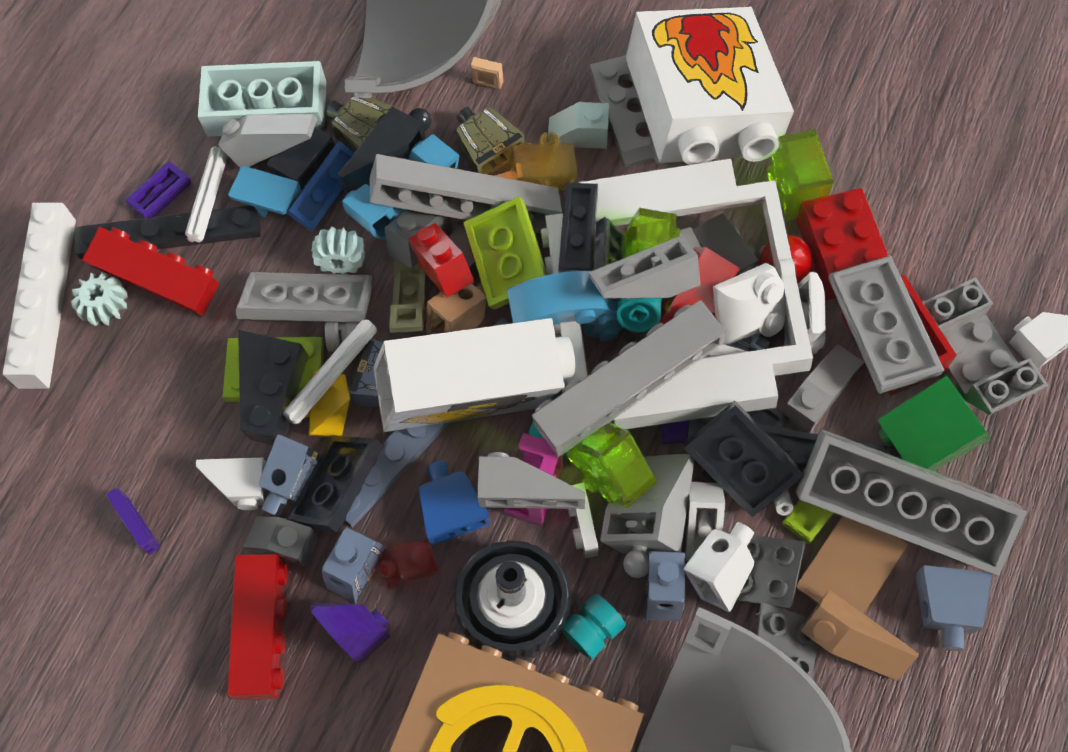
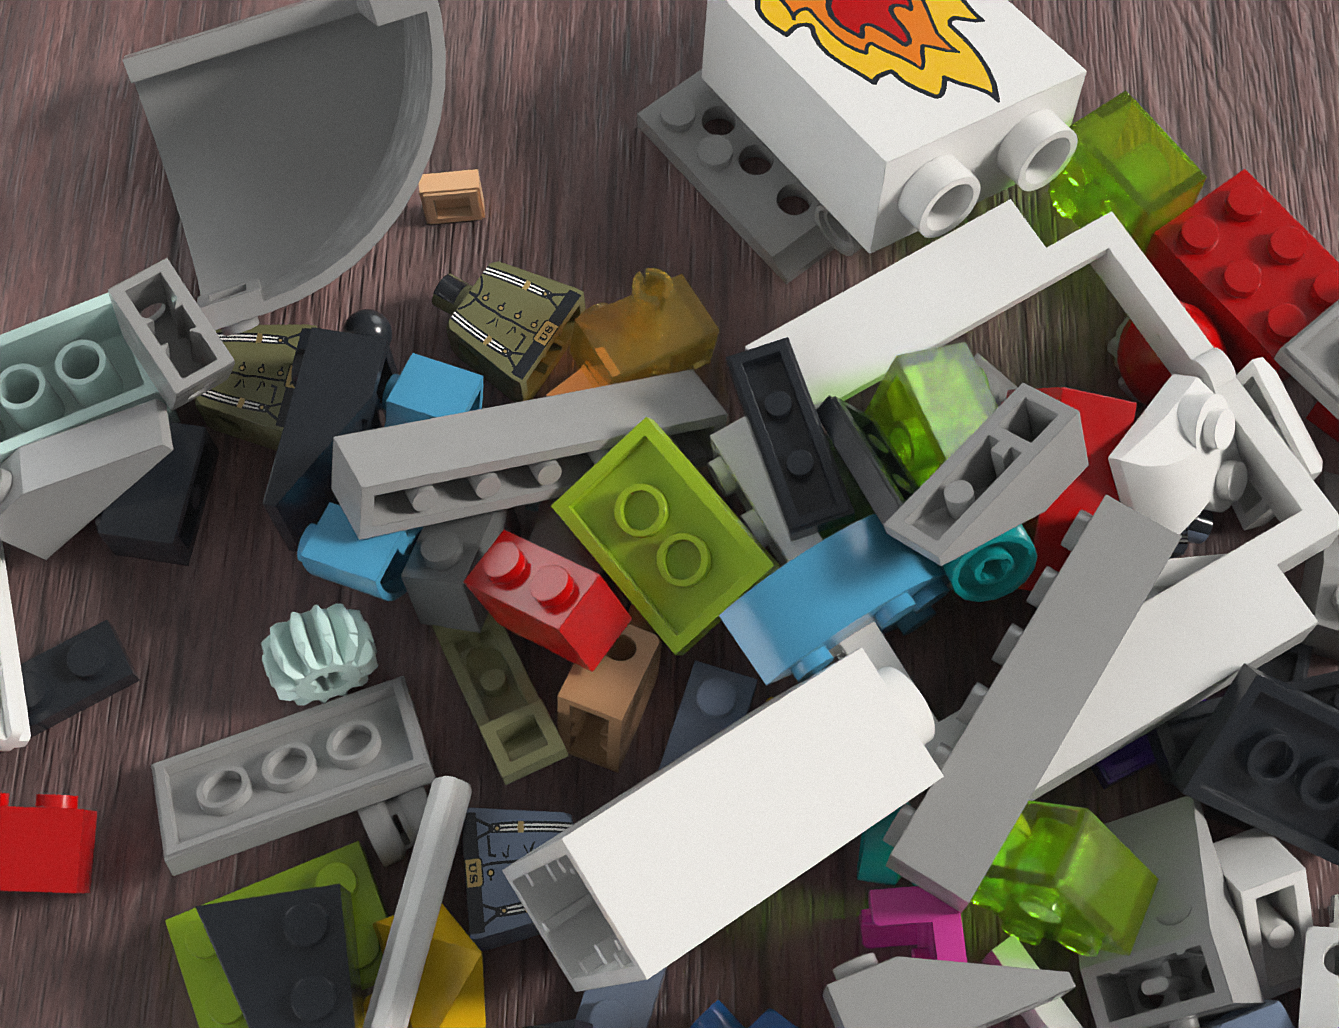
camera: 25 degrees left, 0 degrees up
(264, 191) = (115, 588): dark azure panel -> none
(321, 188) = (228, 534): blue plate -> none
(330, 91) = (177, 341): none -> light grey torso
(582, 124) = (676, 232): light aqua slope -> none
(725, 240) = (1039, 354): dark grey brick -> none

